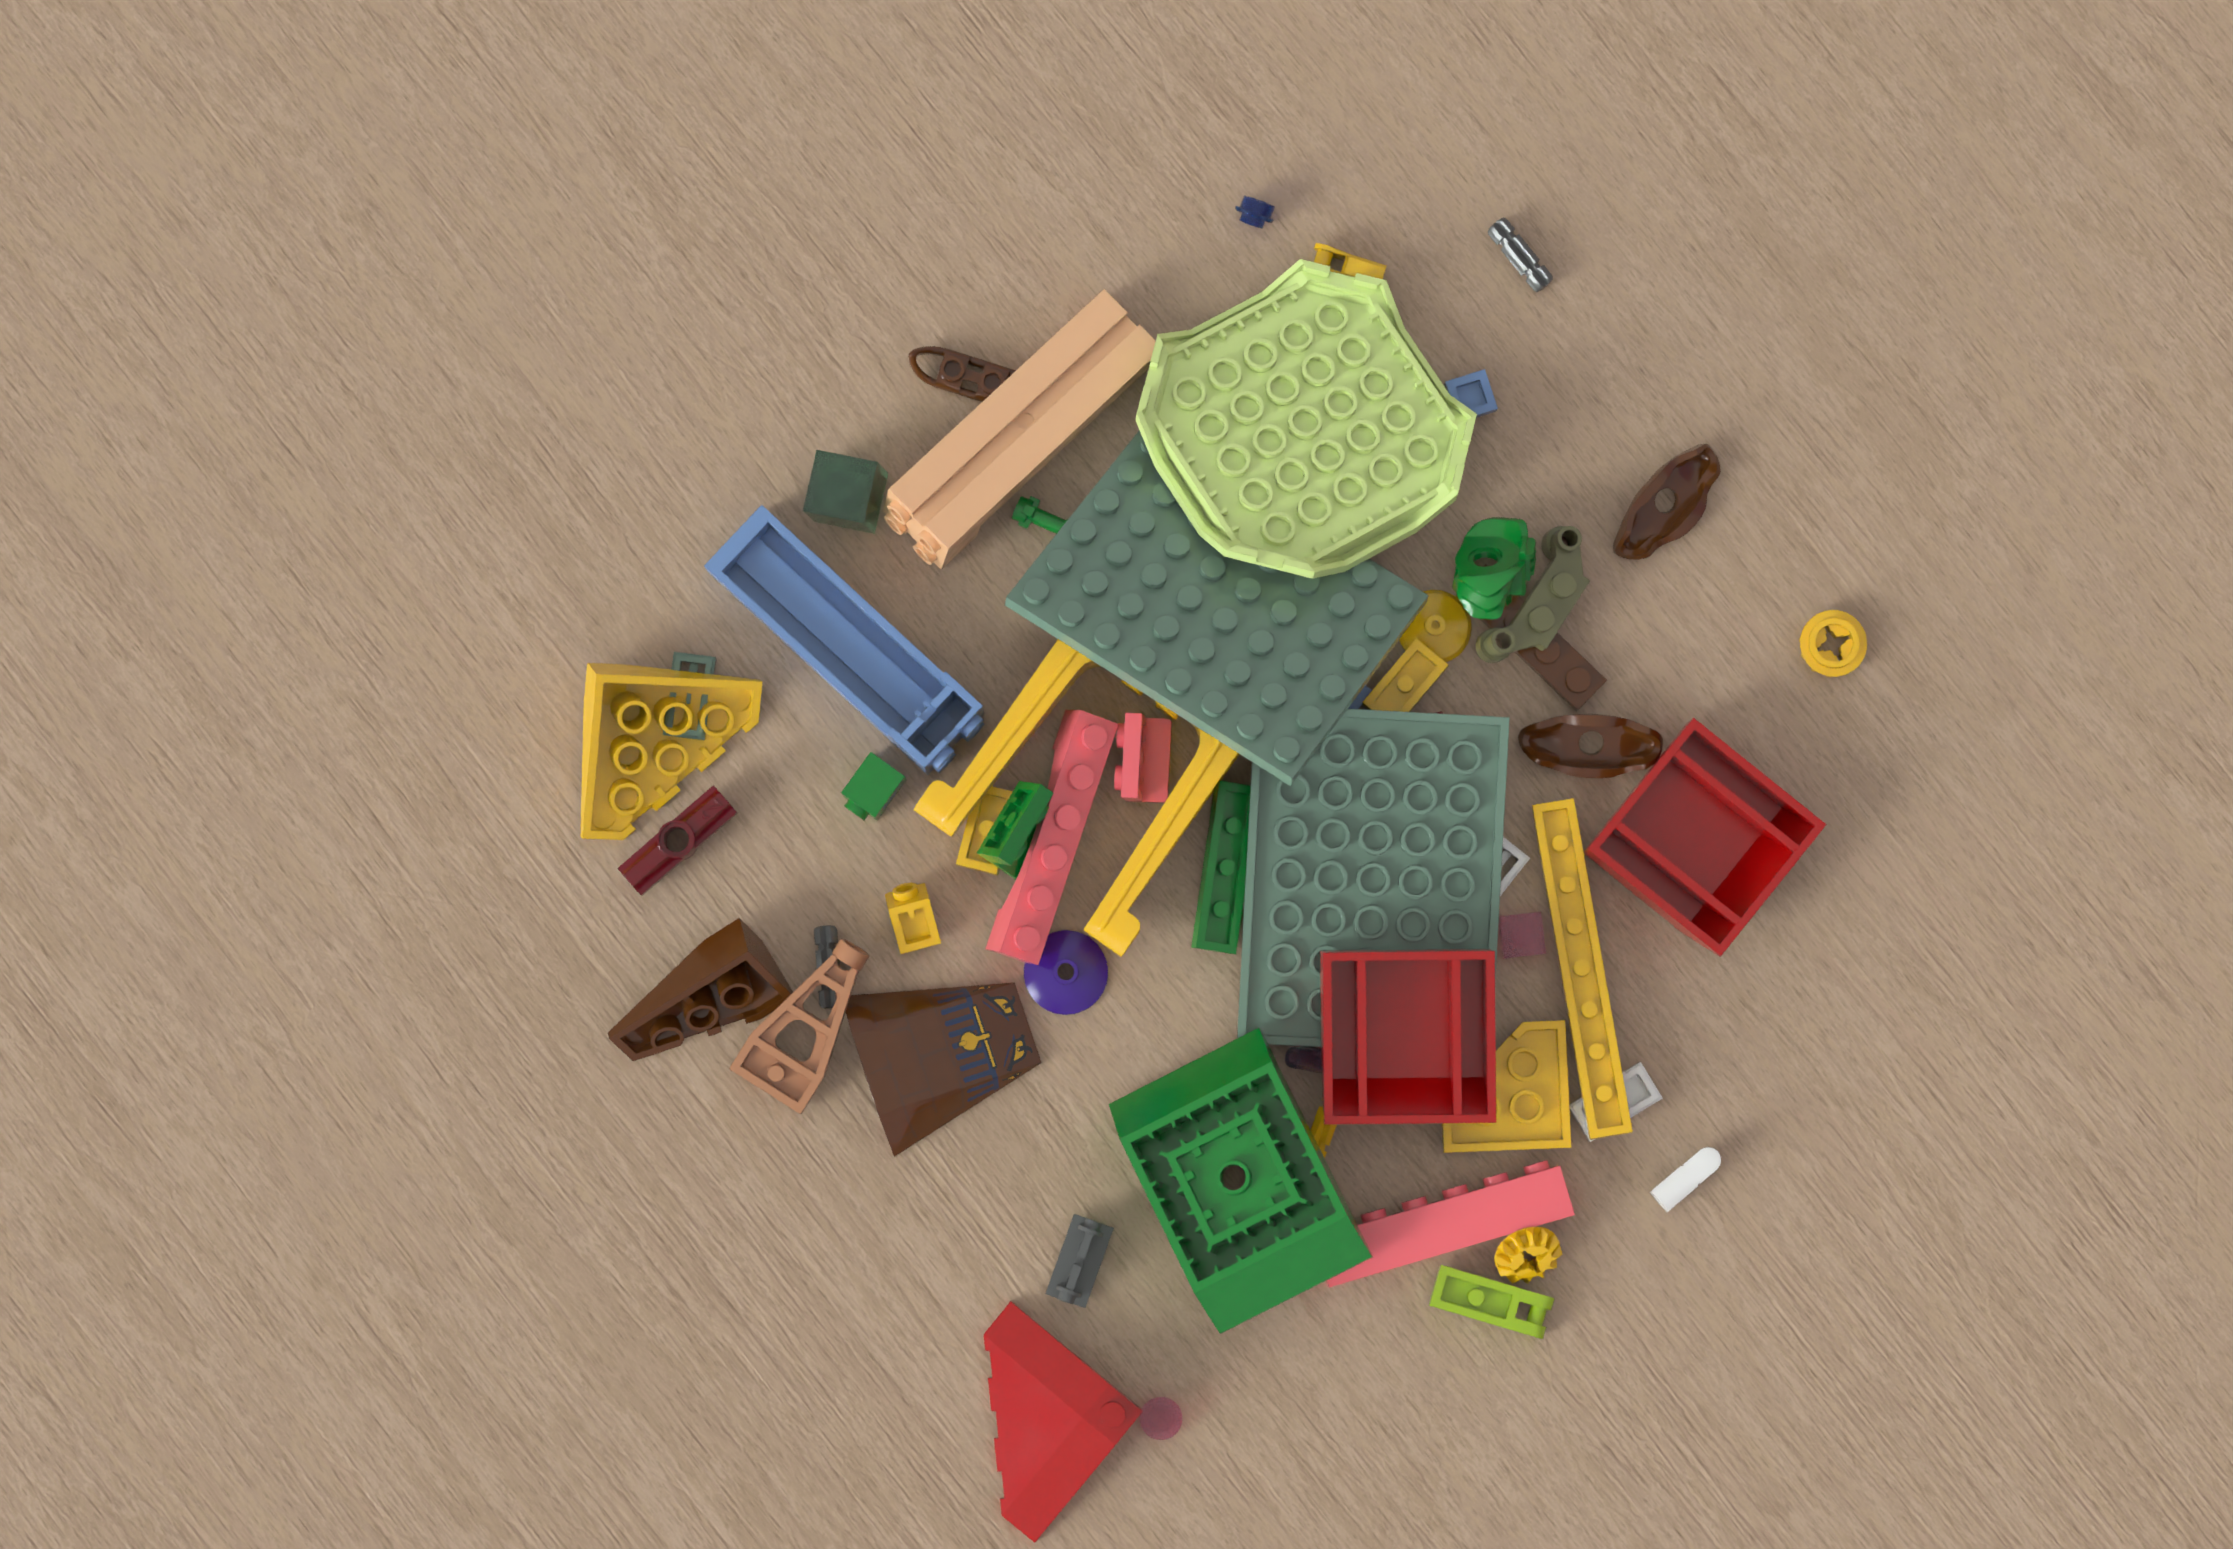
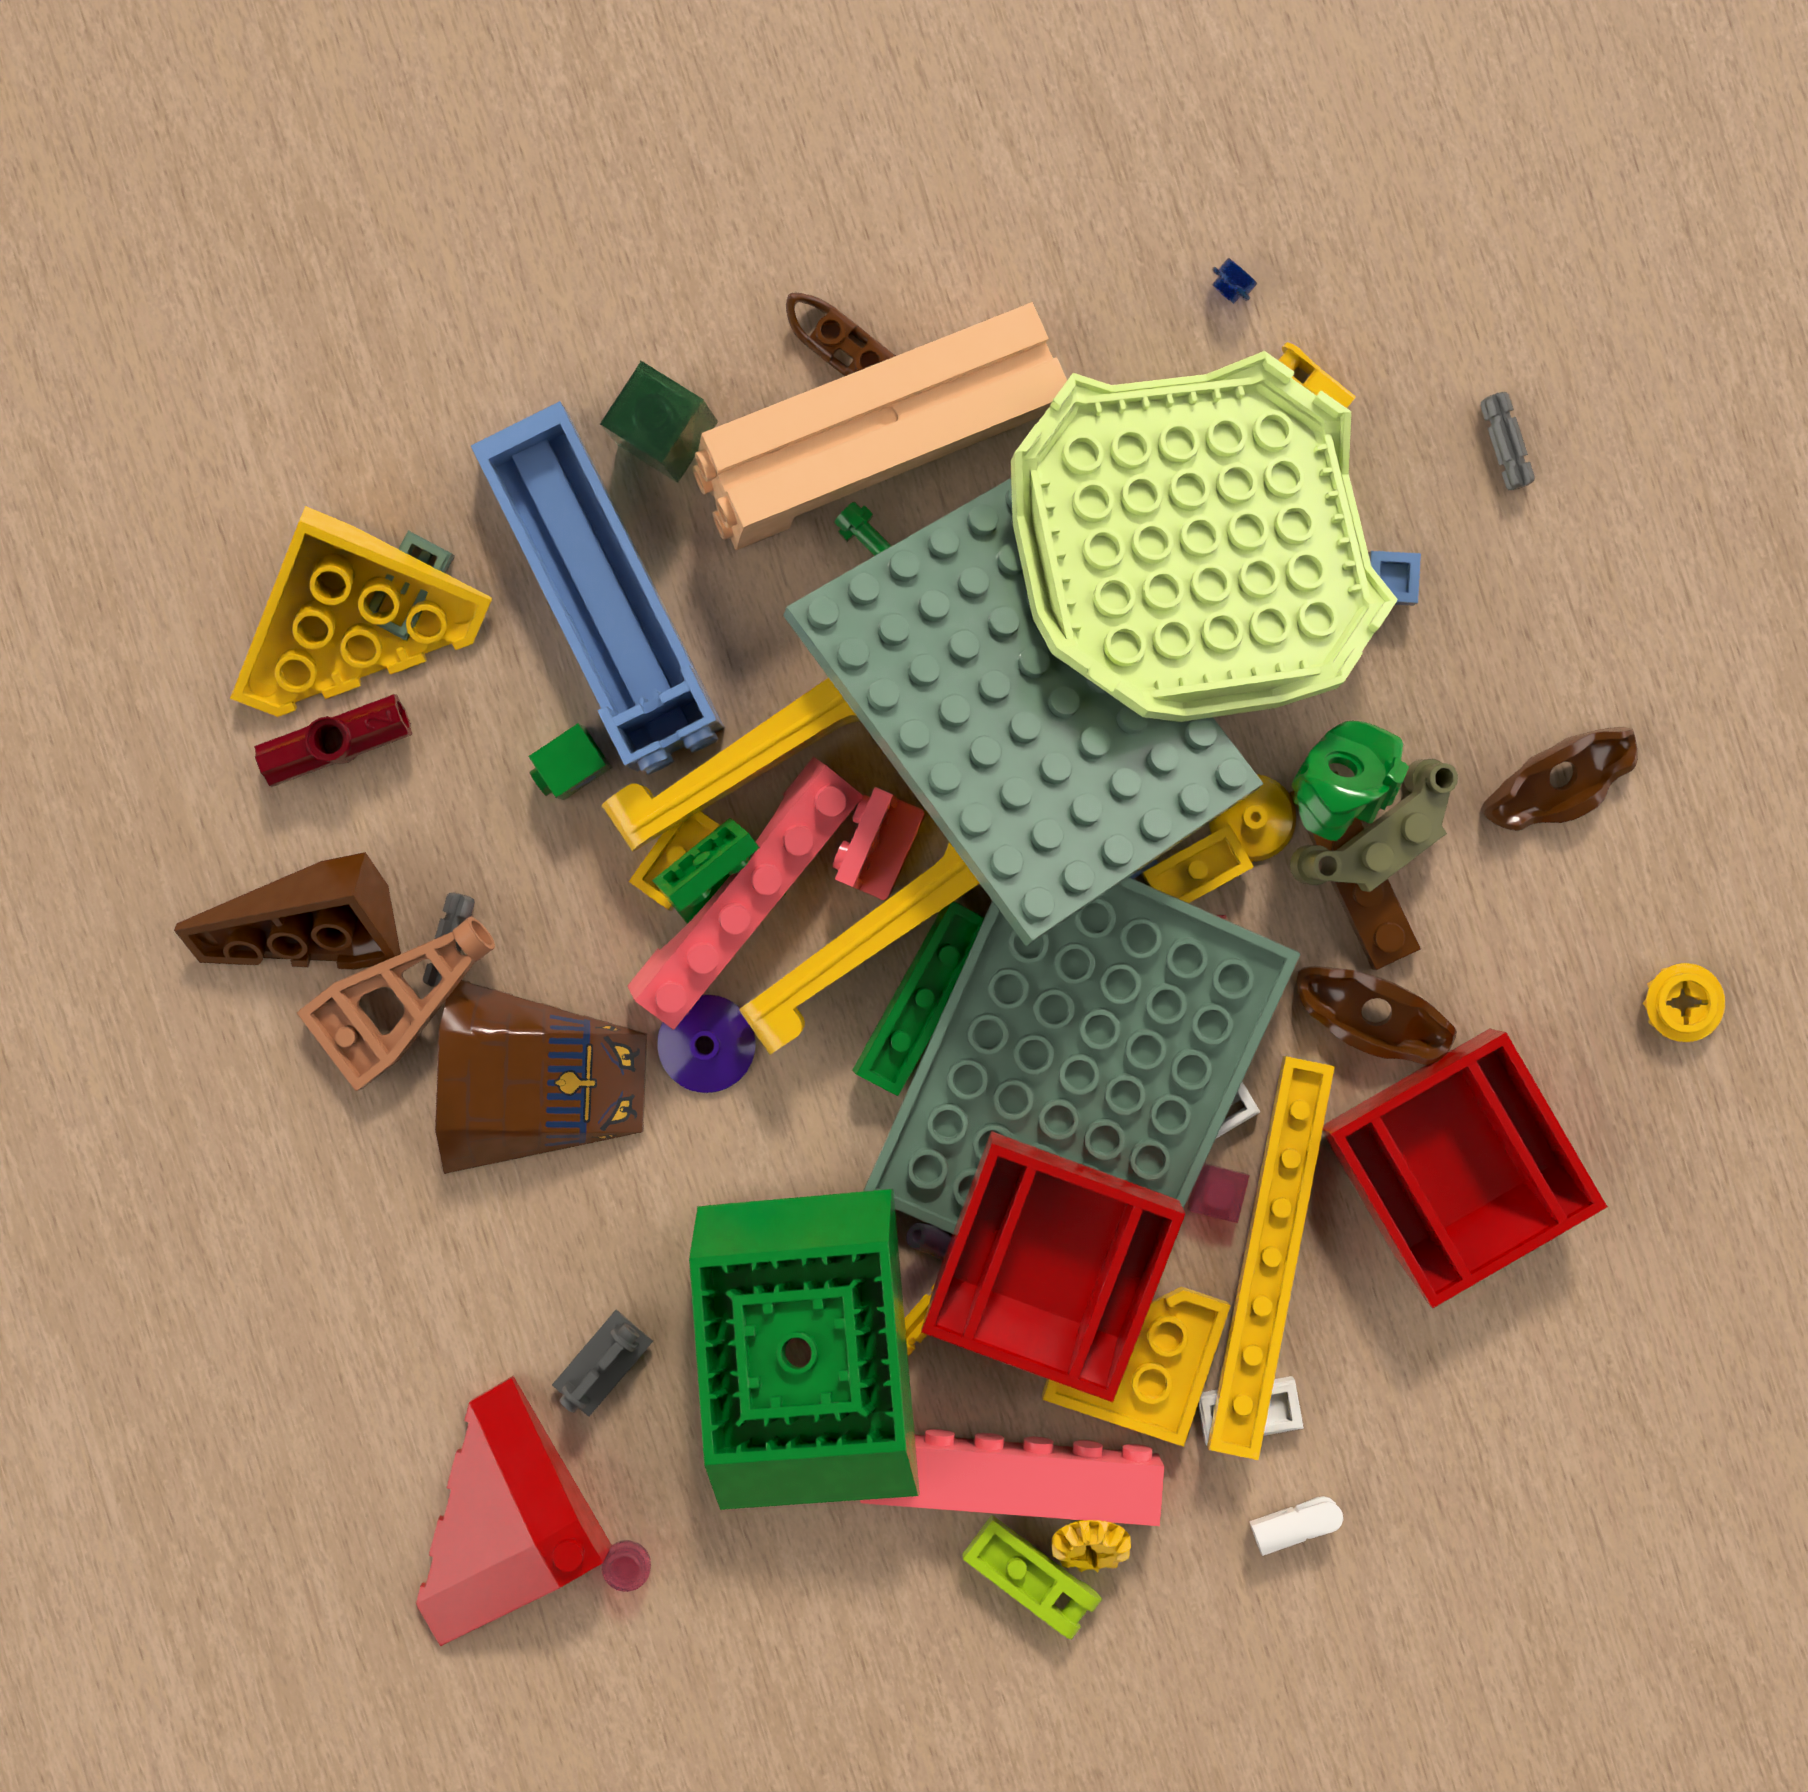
camera: 25 degrees right, 5 degrees up
(912, 917) = (559, 921): yellow bracket -> none

